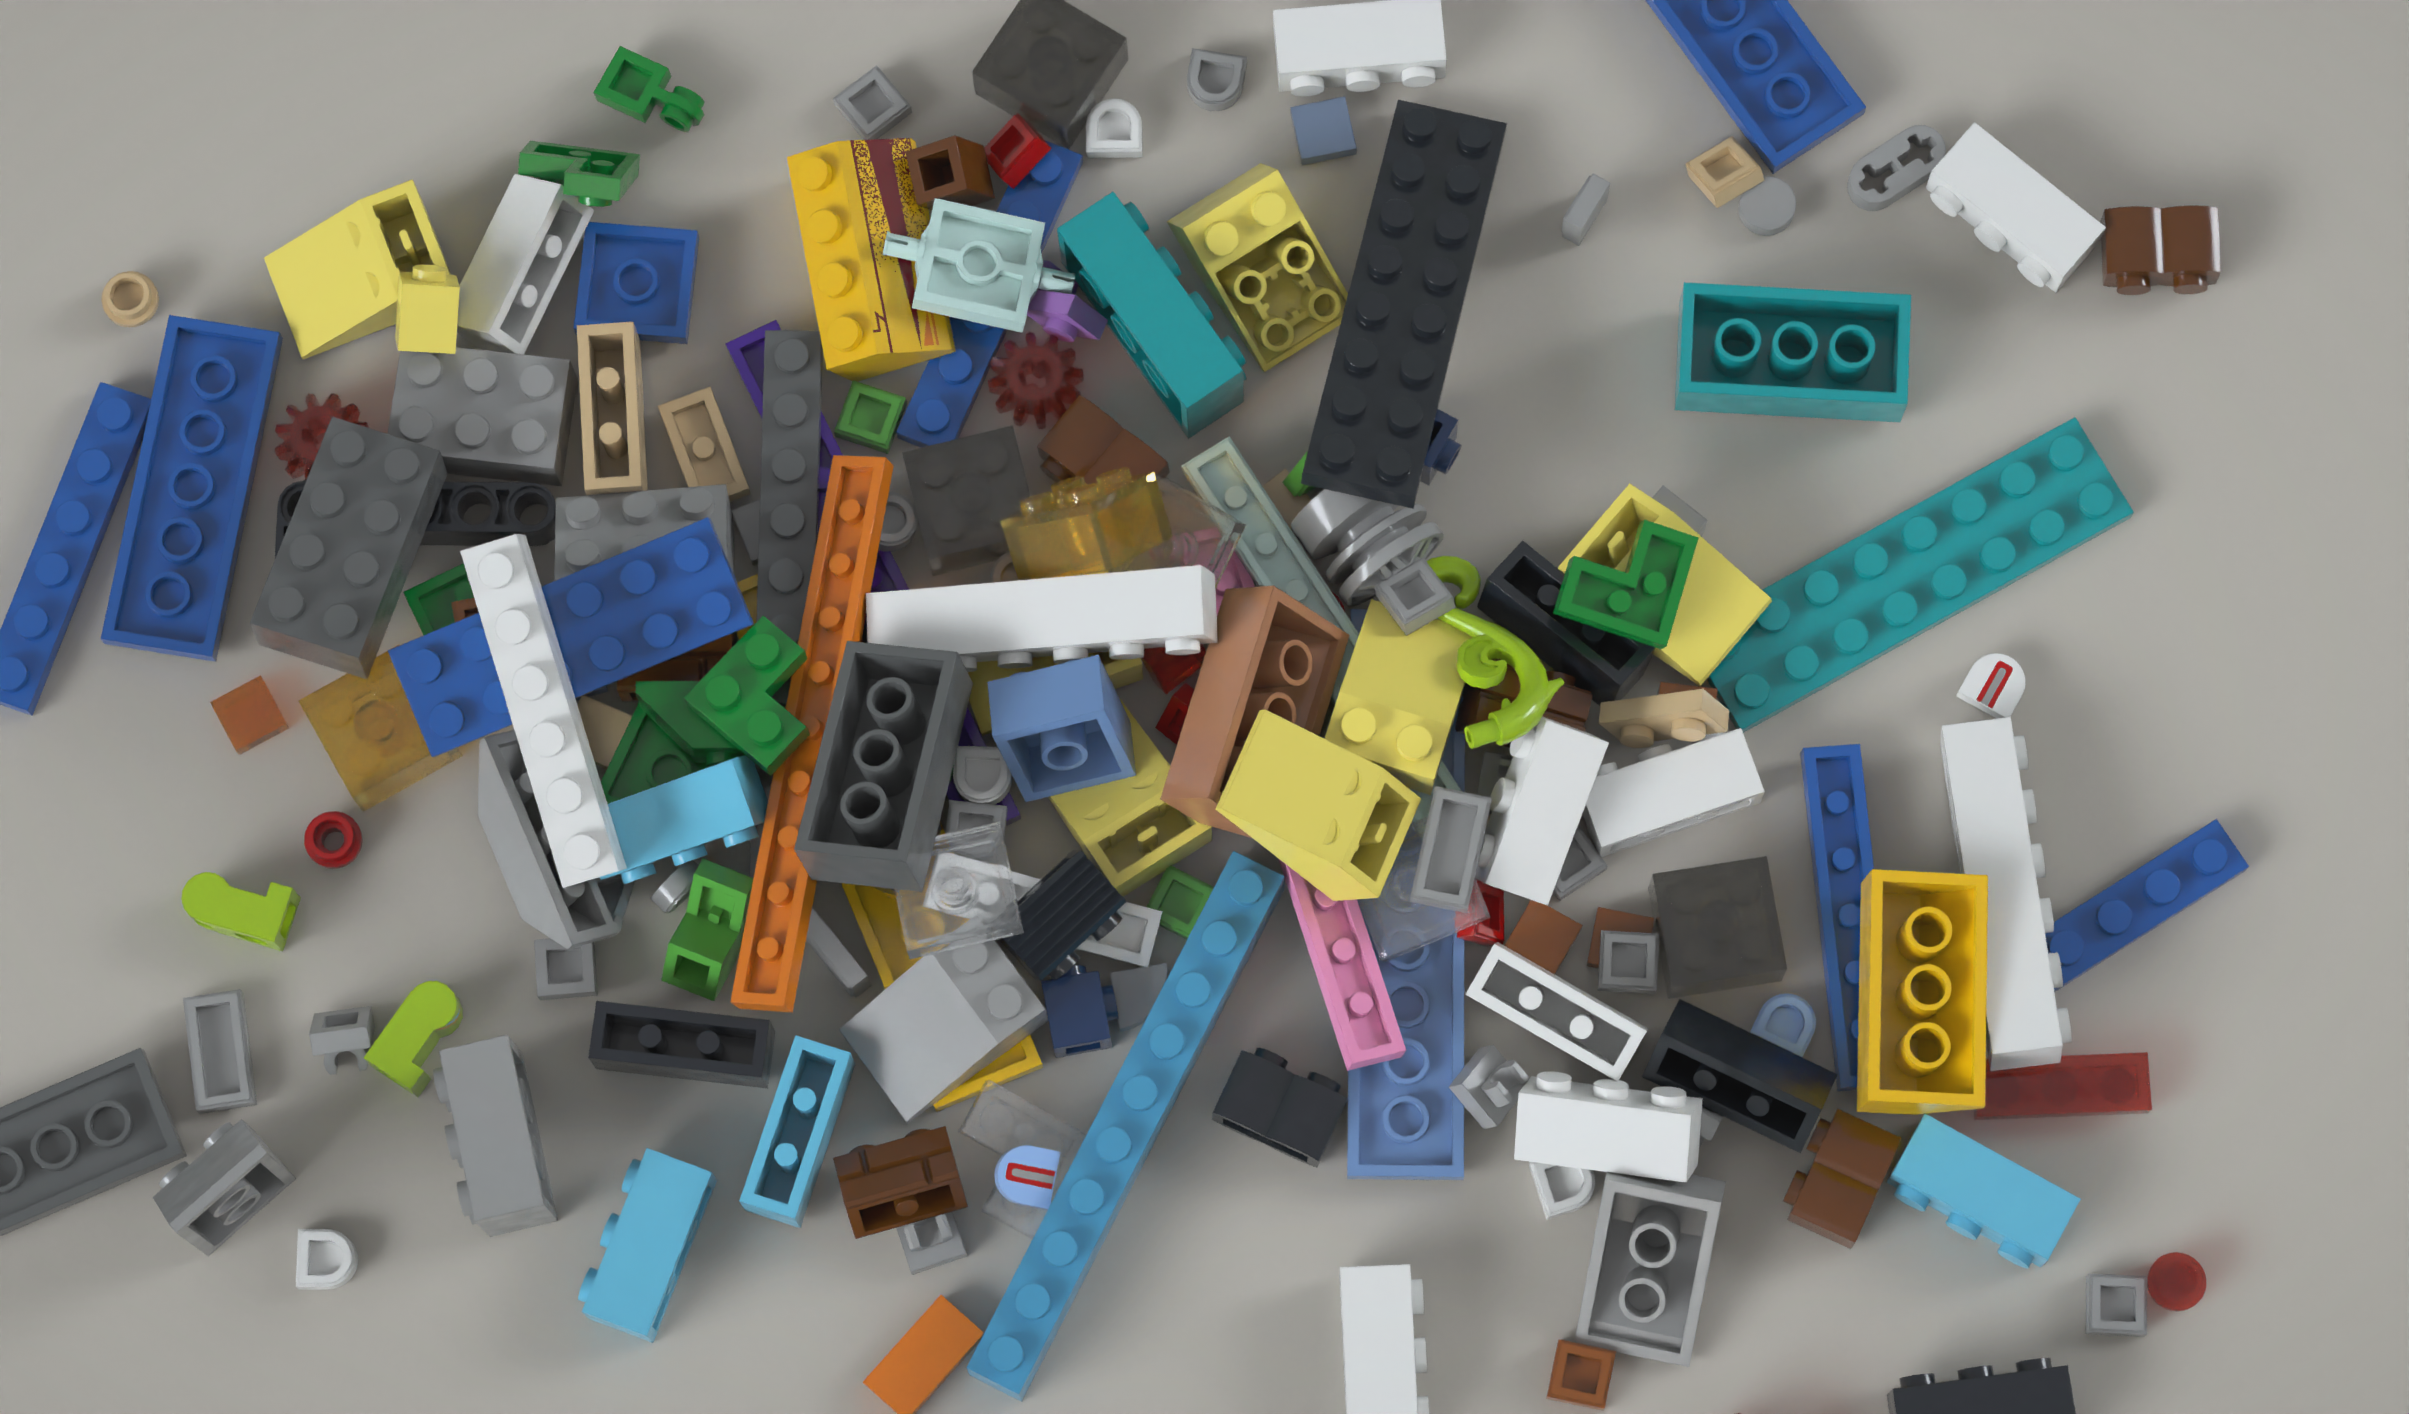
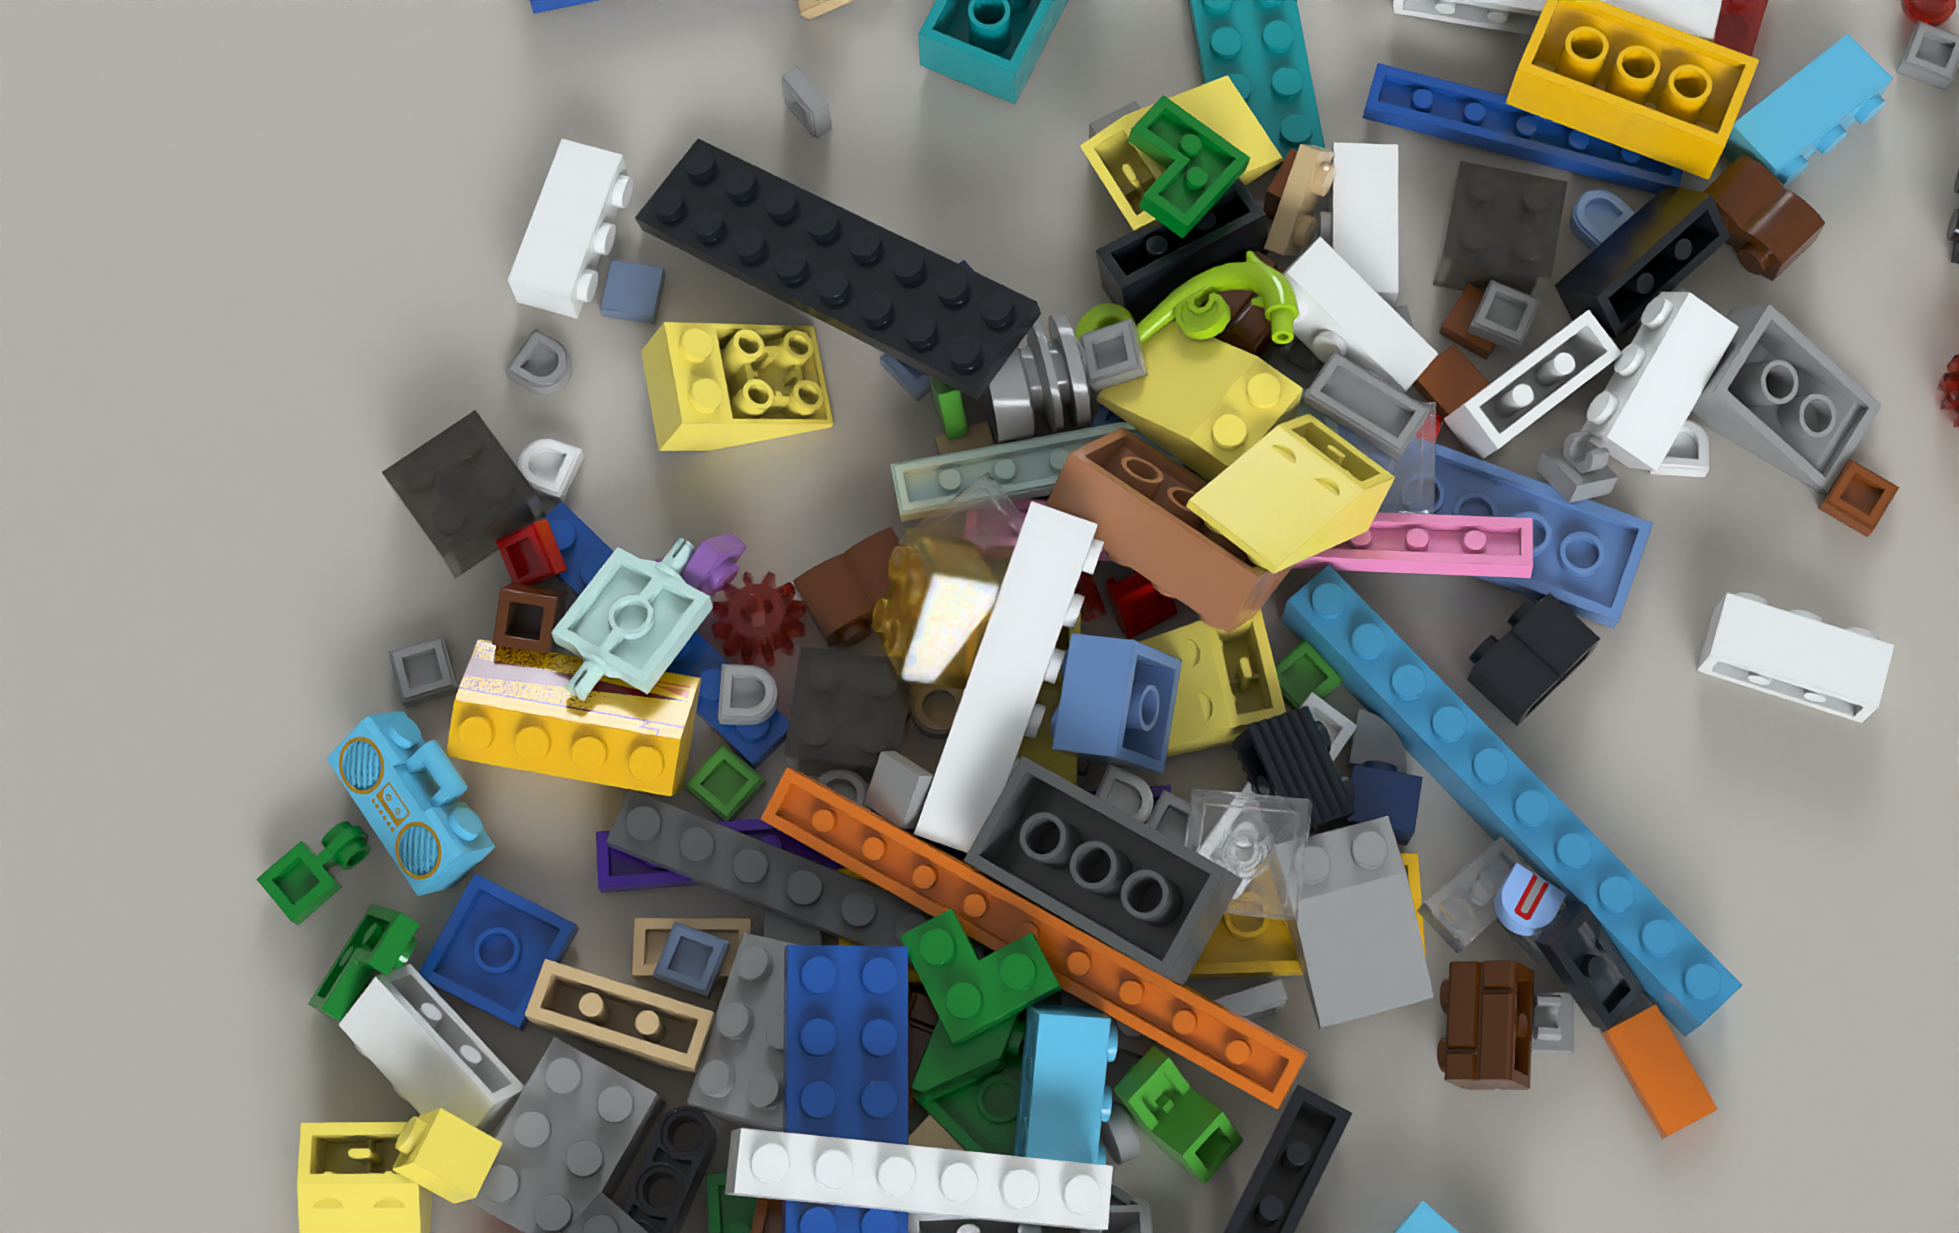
camera: 70 degrees left, 5 degrees down
(688, 451) = (691, 960): none -> sand blue tile
(738, 146) = (411, 801): none -> medium azure piece
(797, 1131) = (1409, 1104): medium azure brick -> none
(904, 564) = (898, 789): none -> light grey tile
(953, 398) = (746, 695): none -> light grey tile
(991, 1253) = (1589, 965): none -> black plate
(1152, 313) = (747, 484): teal brick -> none

